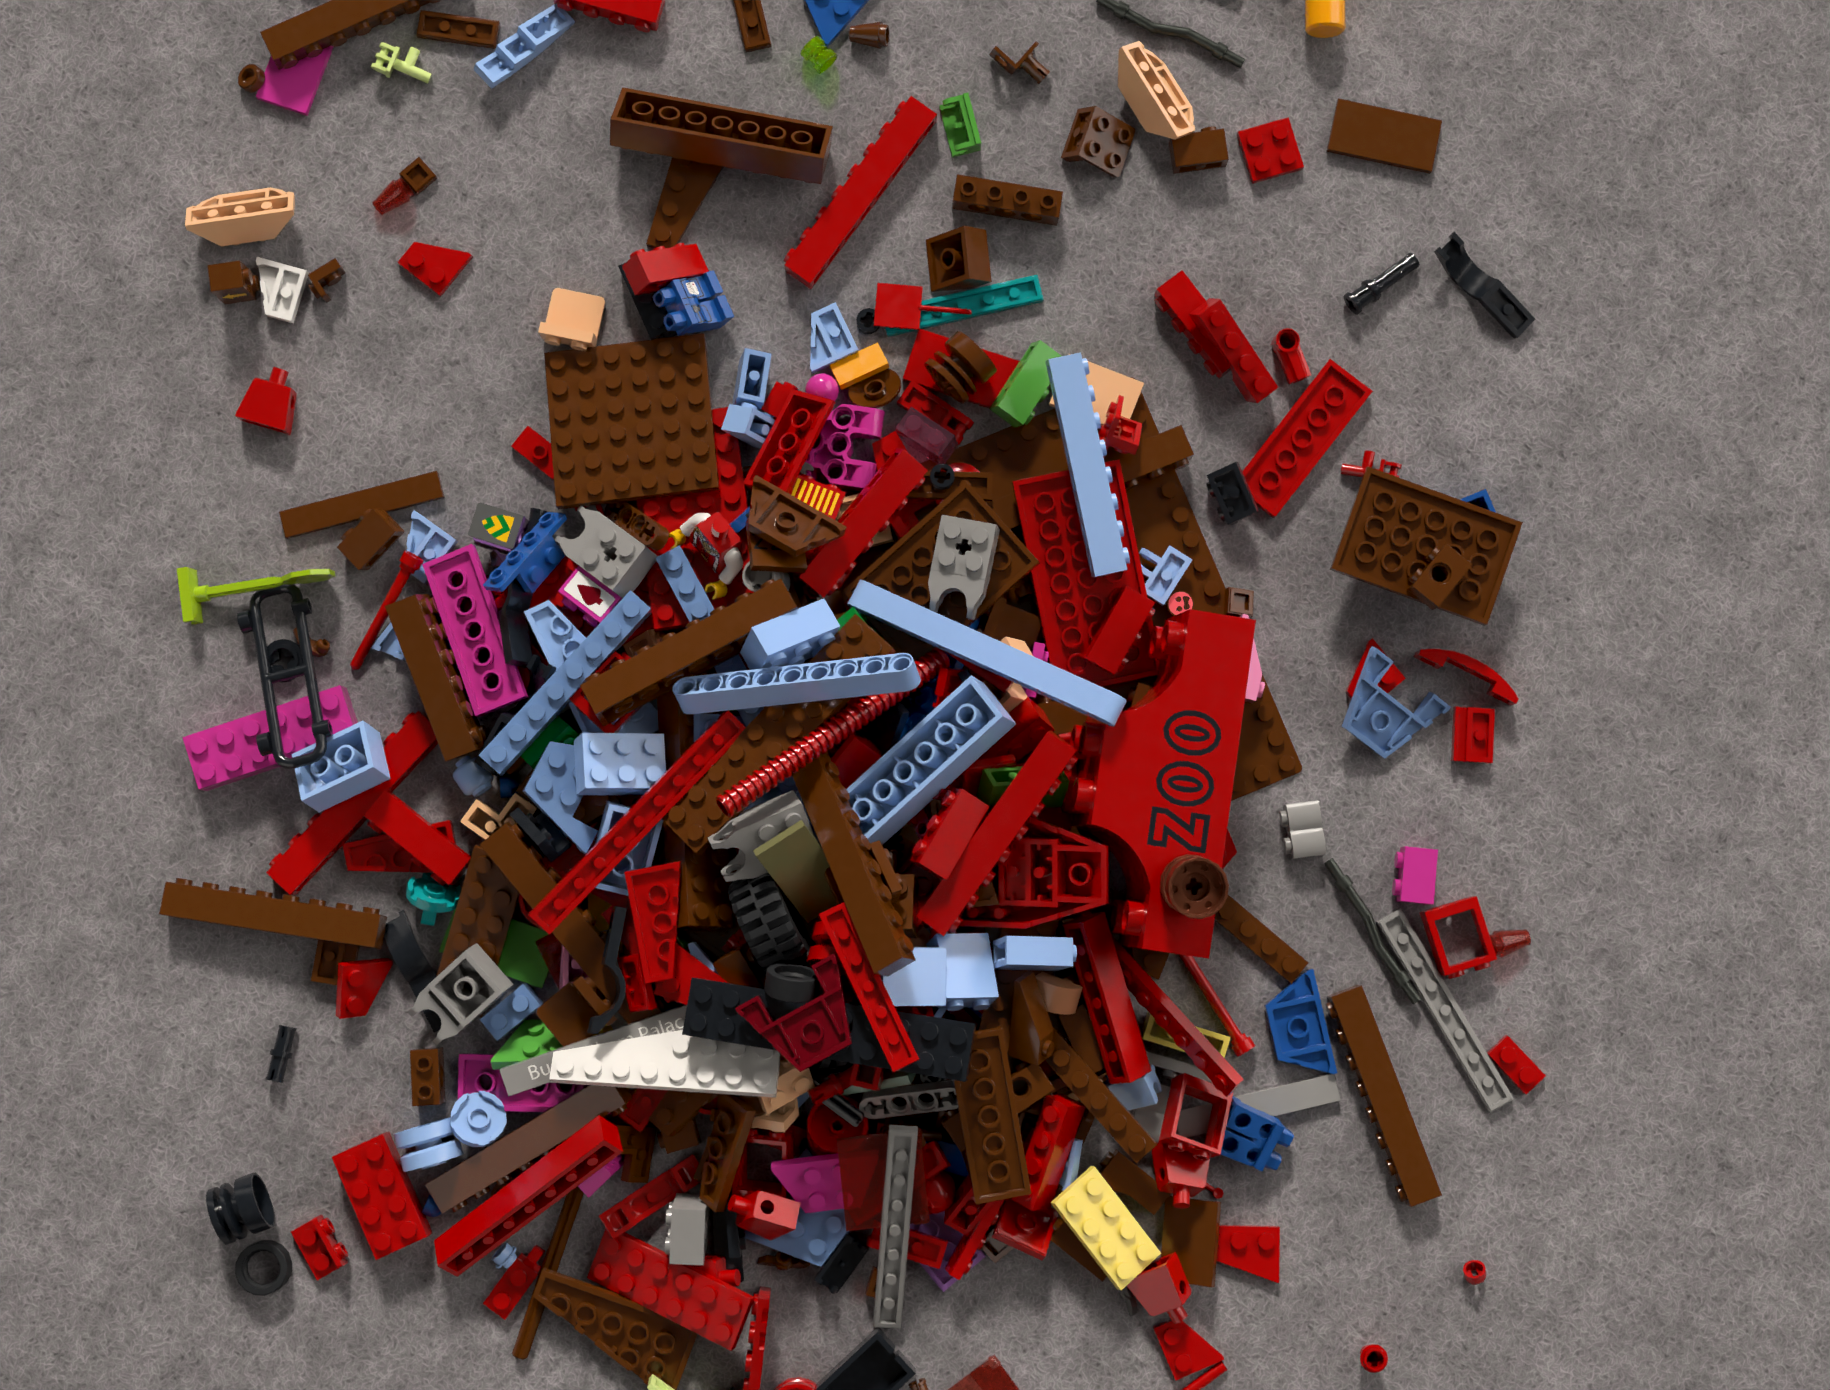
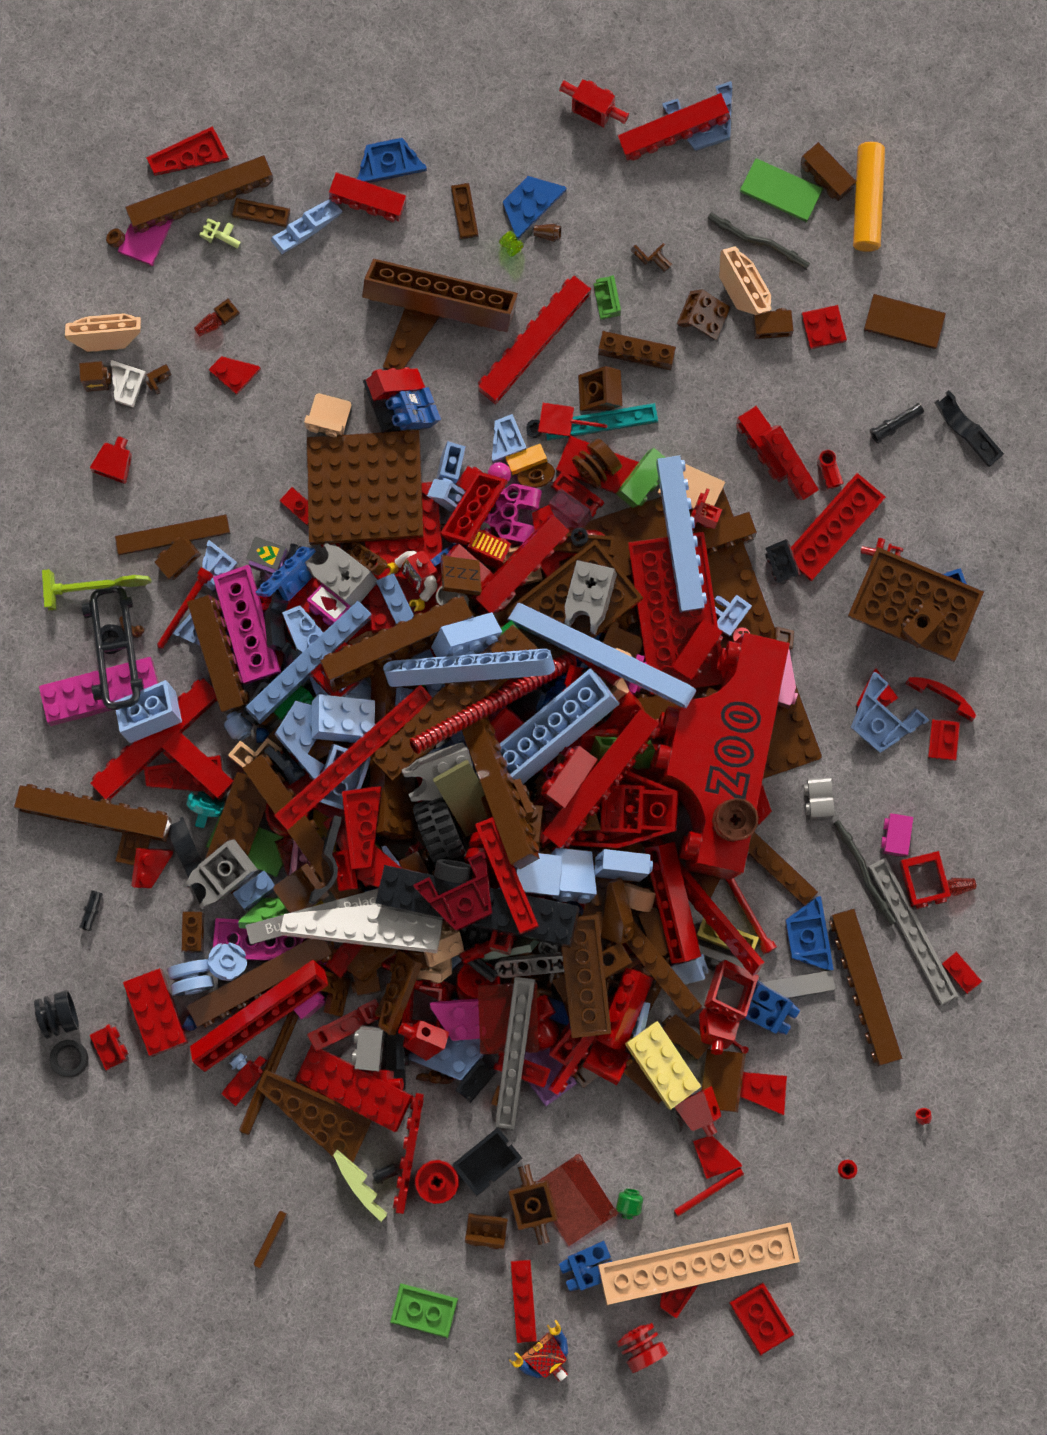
camera: 10 degrees right, 5 degrees down
(789, 521) = (471, 559): reddish brown wing -> none

